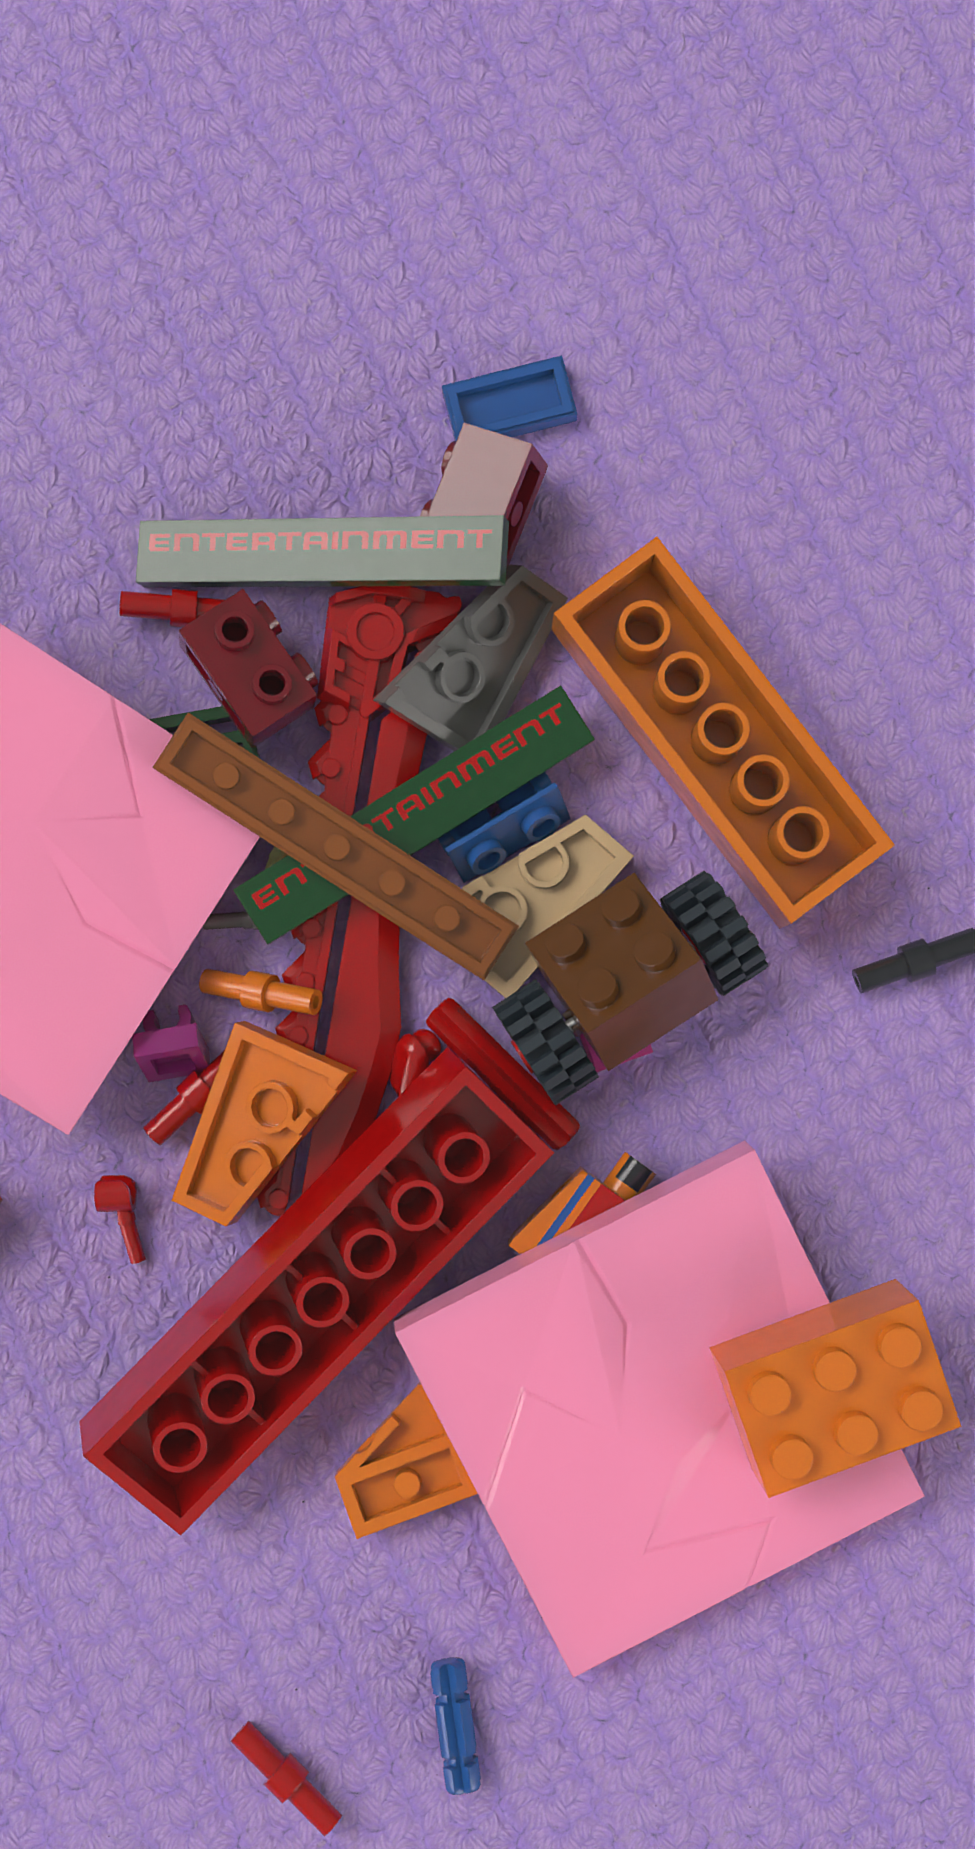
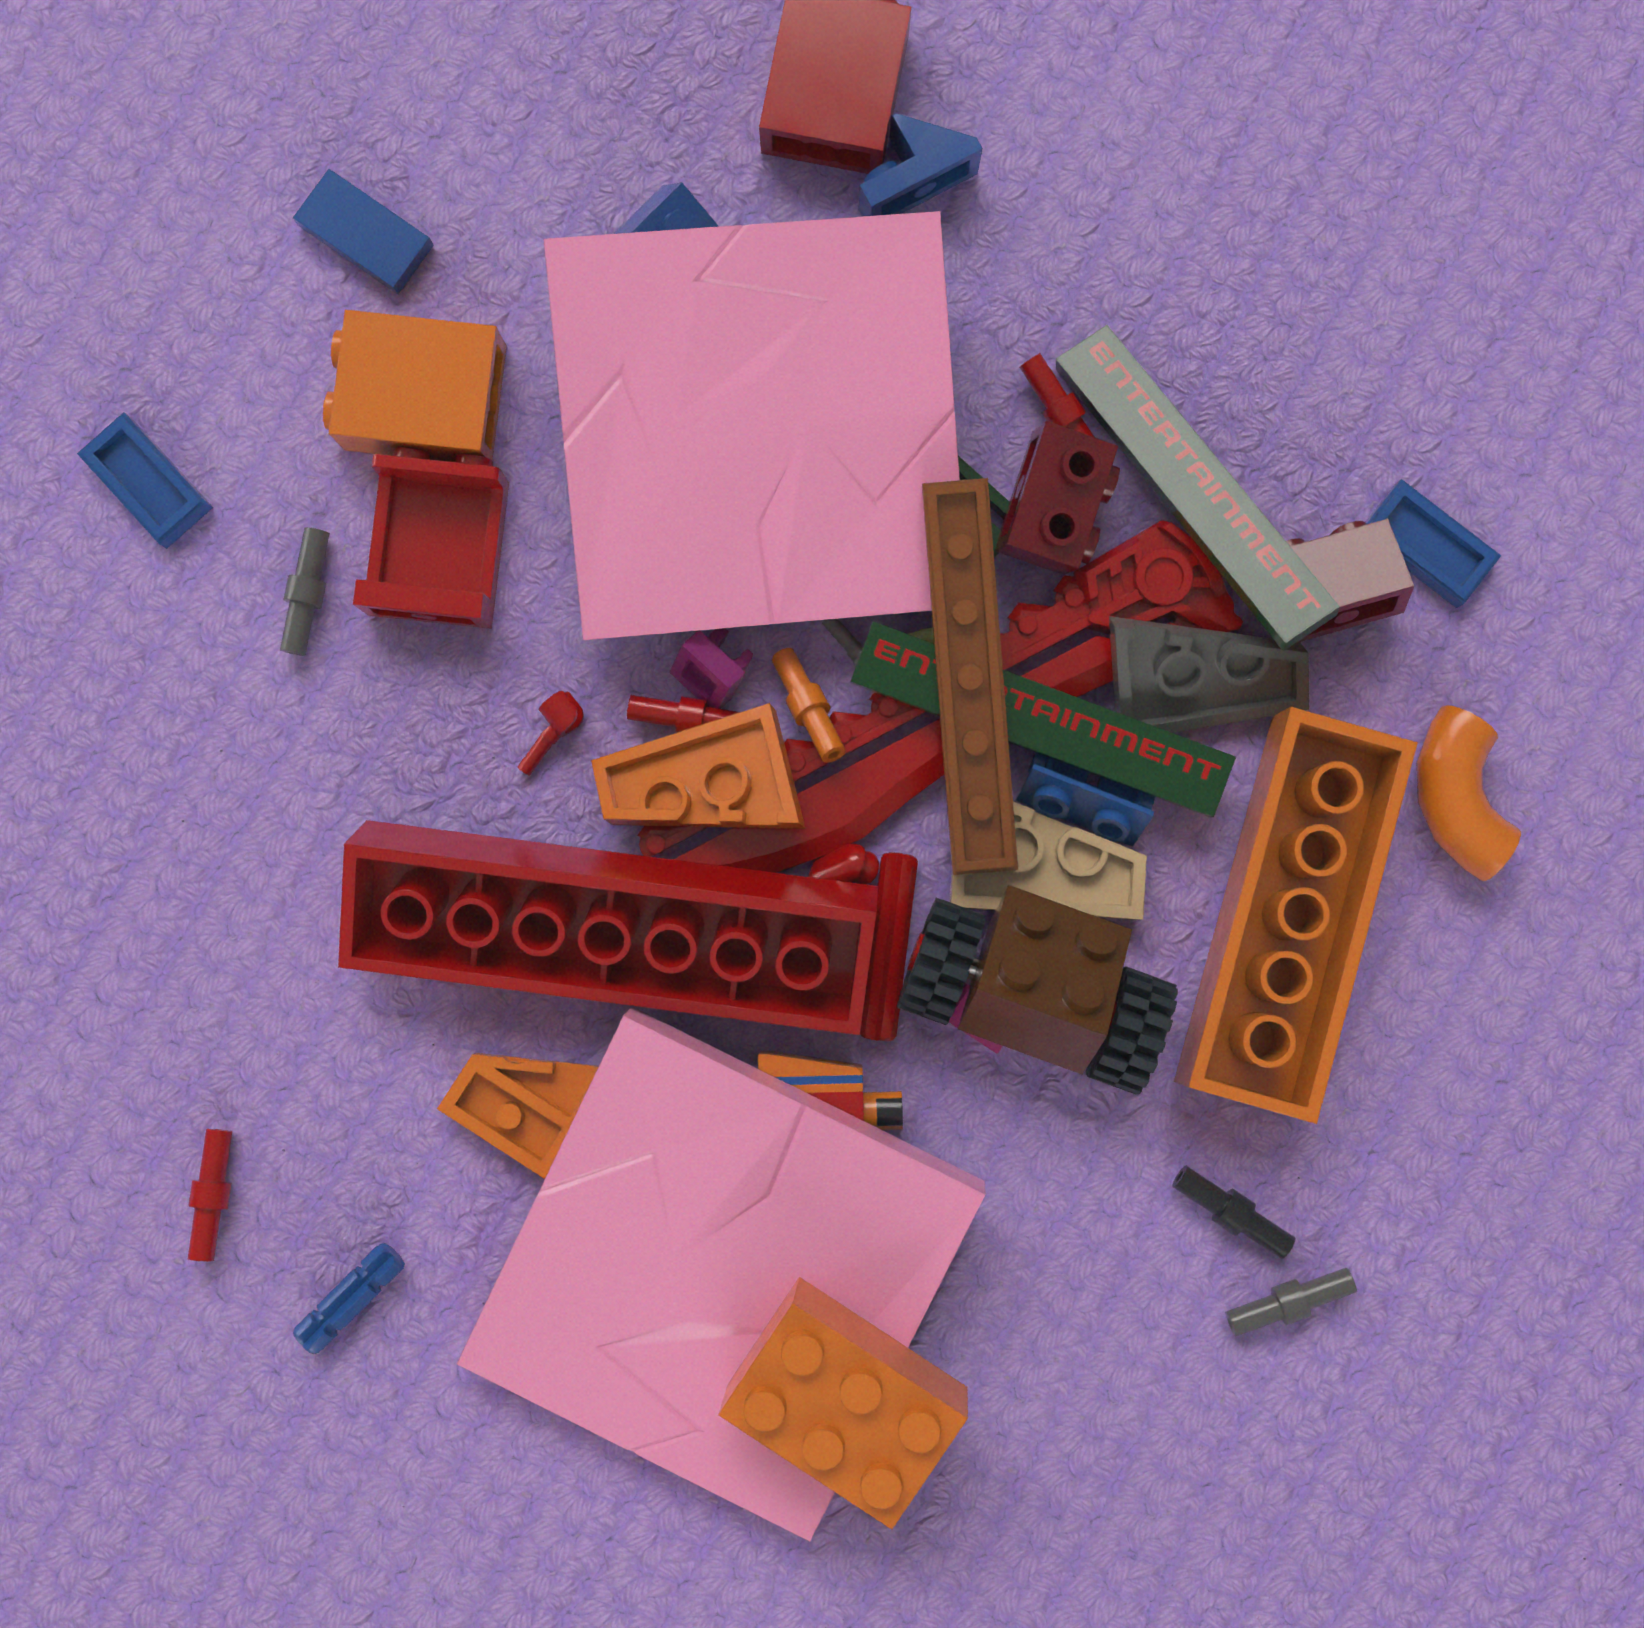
camera: 50 degrees right, 0 degrees up
(722, 538) = (1454, 796): none -> orange cylinder

